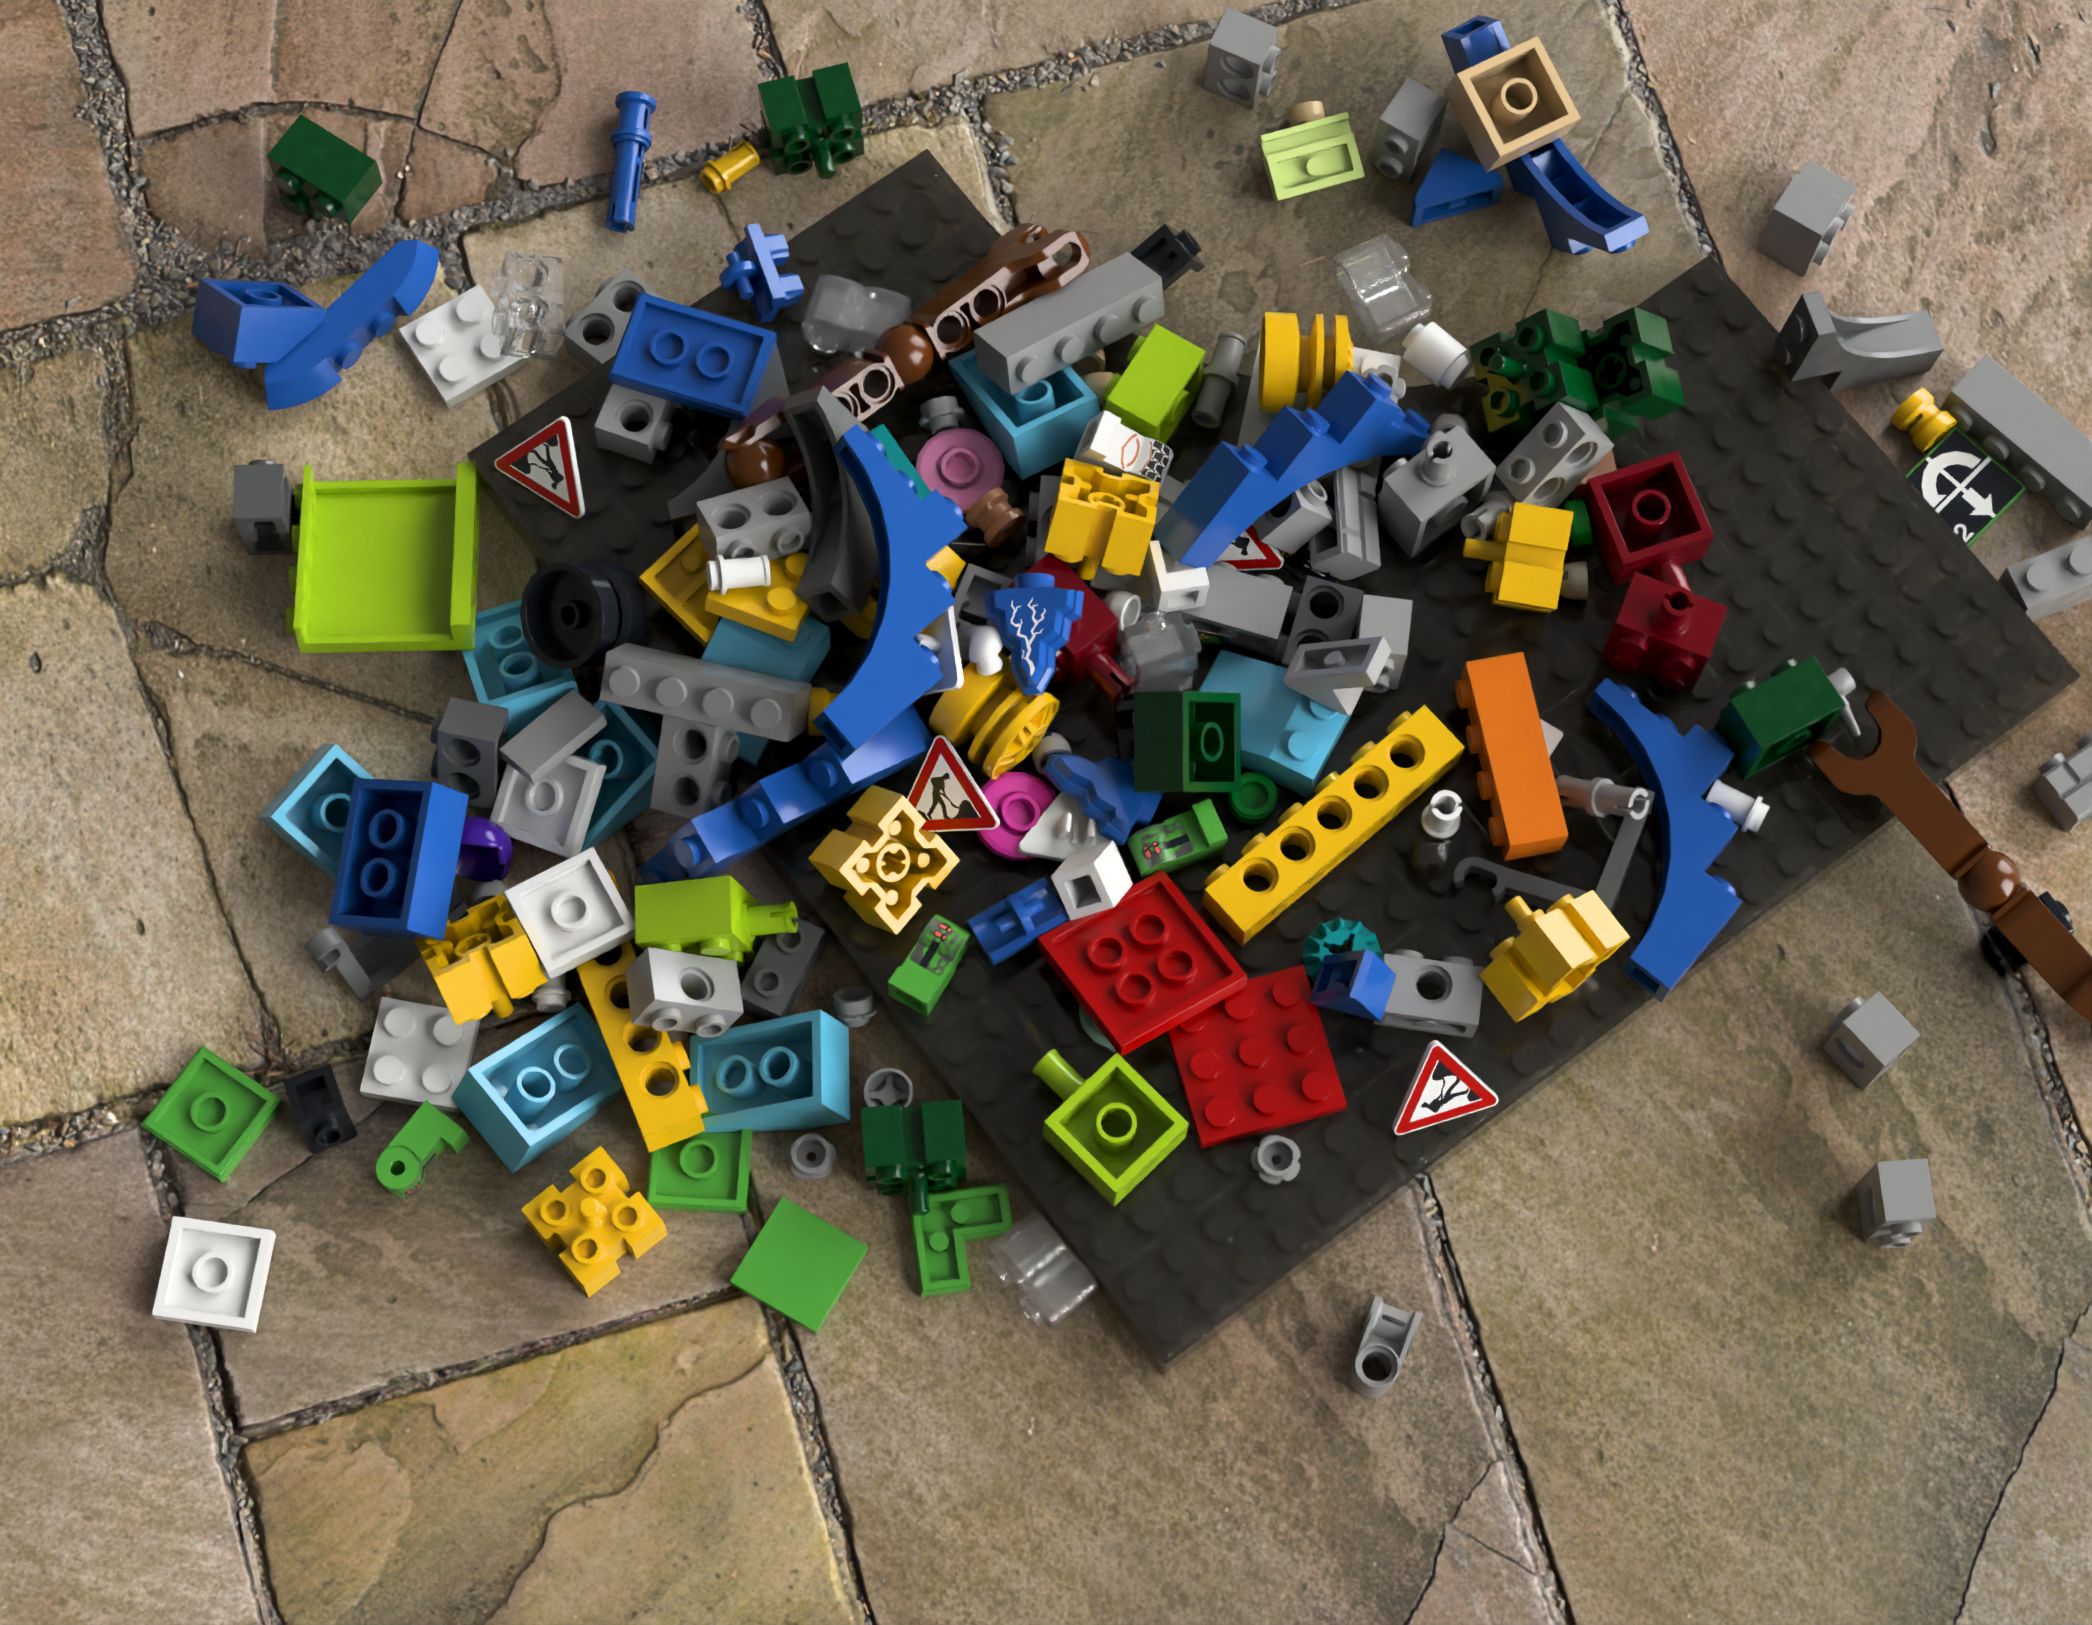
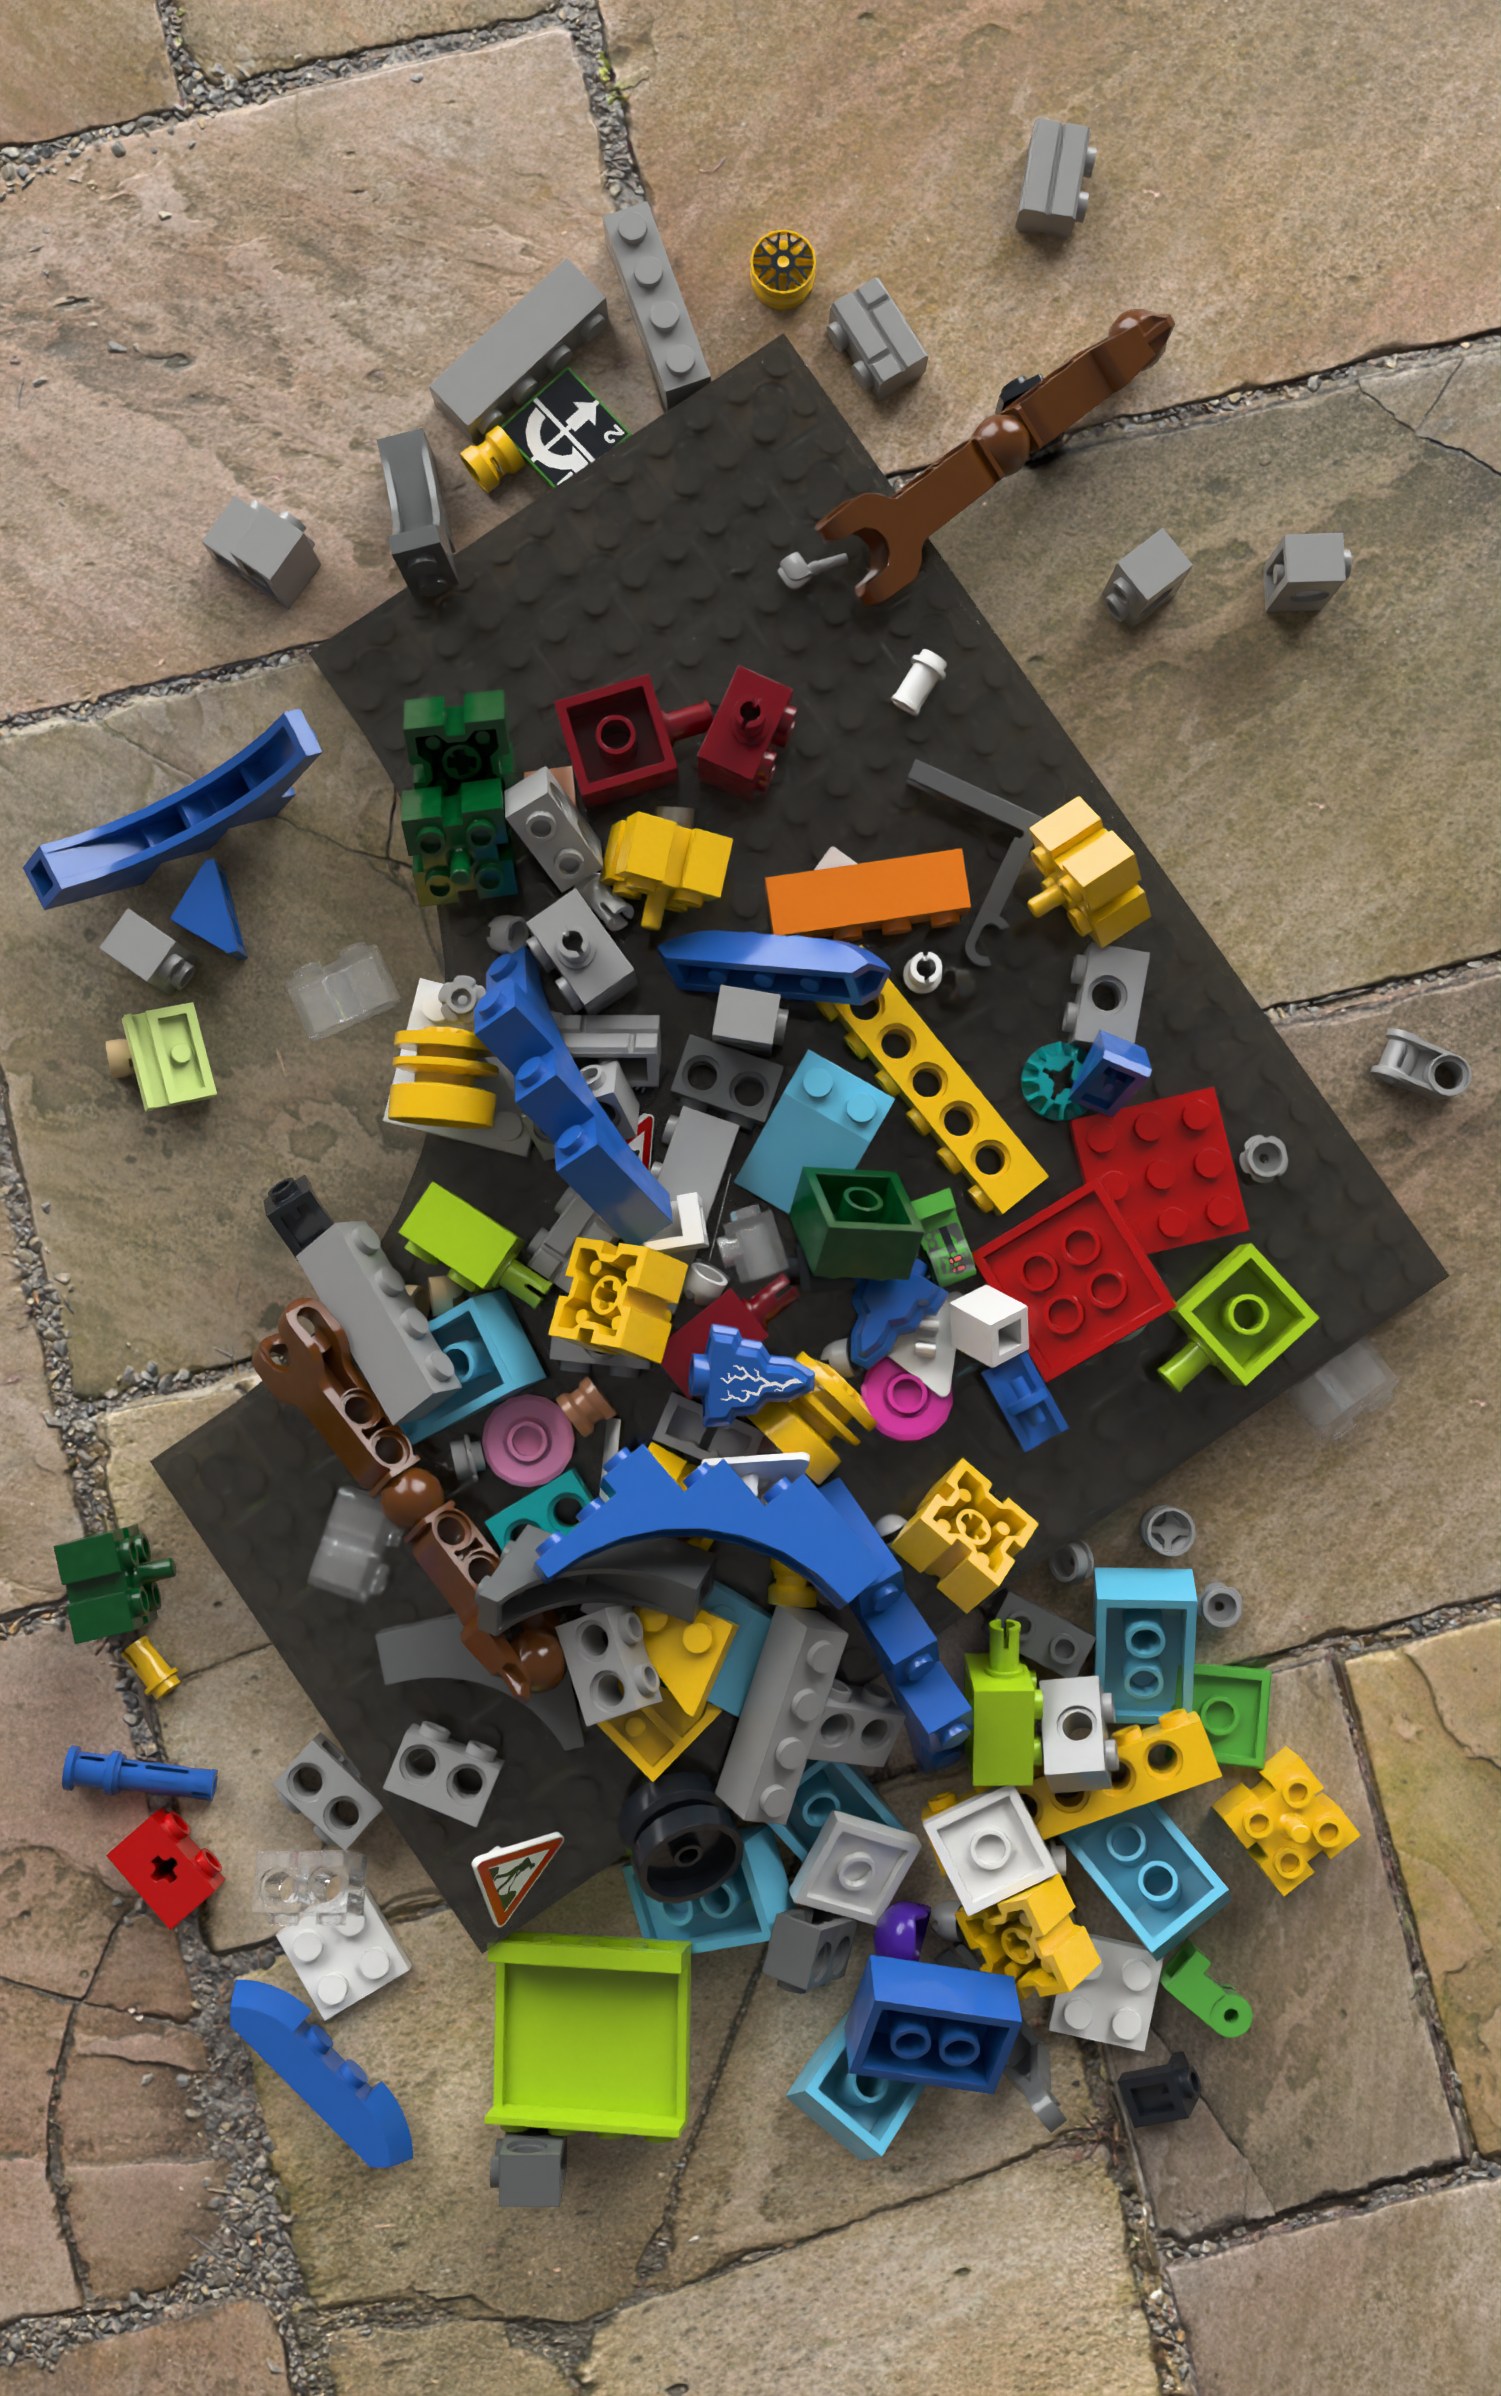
camera: 90 degrees left, 15 degrees up
(212, 1114) = (1159, 2196): bright green tile -> none
(214, 1274) = (1323, 2192): white plate -> none
(253, 319) = (314, 2179): blue slope -> none
(322, 173) = (151, 2113): dark green brick -> none
(544, 187) = (171, 1892): none -> red brick
(553, 736) = (805, 1866): light grey tile -> none
(692, 357) = (403, 1722): blue tile -> none
(737, 573) = (670, 1684): white pin -> none
(755, 275) = (277, 1648): blue hips -> none
(799, 1265) = (1324, 1620): bright green tile -> none
(914, 1150) = (1228, 1509): dark green brick -> none
(929, 965) = (1062, 1490): bright green leg -> none
(948, 793) = (891, 1468): piece -> none
(952, 1221) = (1288, 1481): bright green tile -> none
(983, 647) = (760, 1428): white arm -> none
(1122, 449) = (539, 1274): white leg -> none
(1219, 379) = (438, 1167): light grey pin -> none
(1242, 59) = (56, 1121): light grey brick -> none
(1256, 799) = (895, 1155): green tile -> none
(1337, 670) = (792, 1066): light grey slope -> none
(1436, 663) = (775, 964): none -> blue brick
(1437, 355) = (422, 941): white brick -> none
(1441, 1092) = (1205, 994): piece -> none
(1511, 104) = (141, 839): tan brick -> none
(1580, 529) = (612, 811): green tile -> none
(1602, 797) = (917, 812): light grey pin -> none
(1693, 834) = (887, 732): blue arch -> none
(1778, 715) = (840, 629): dark green brick -> none

